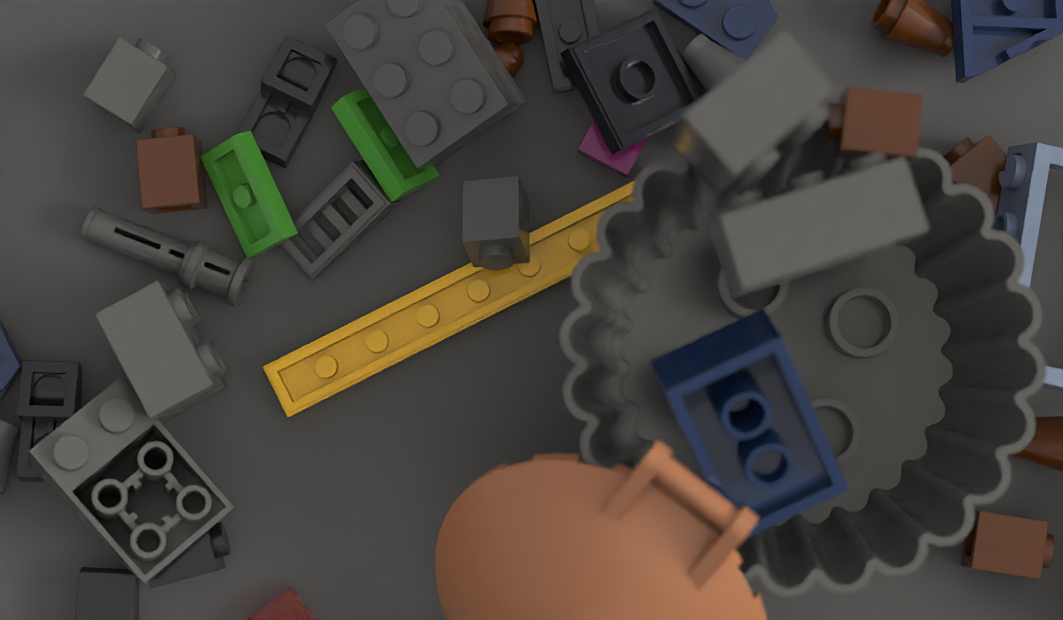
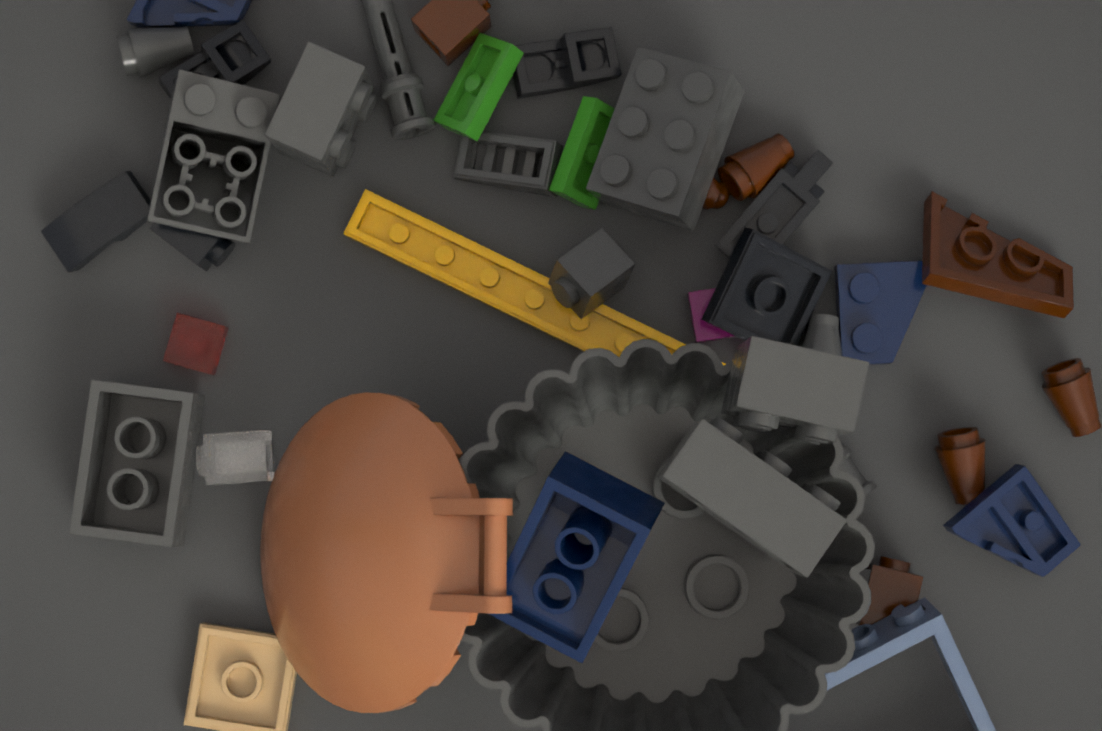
camera: 55 degrees right, 0 degrees up
(874, 123) = (859, 483): reddish brown brick -> none

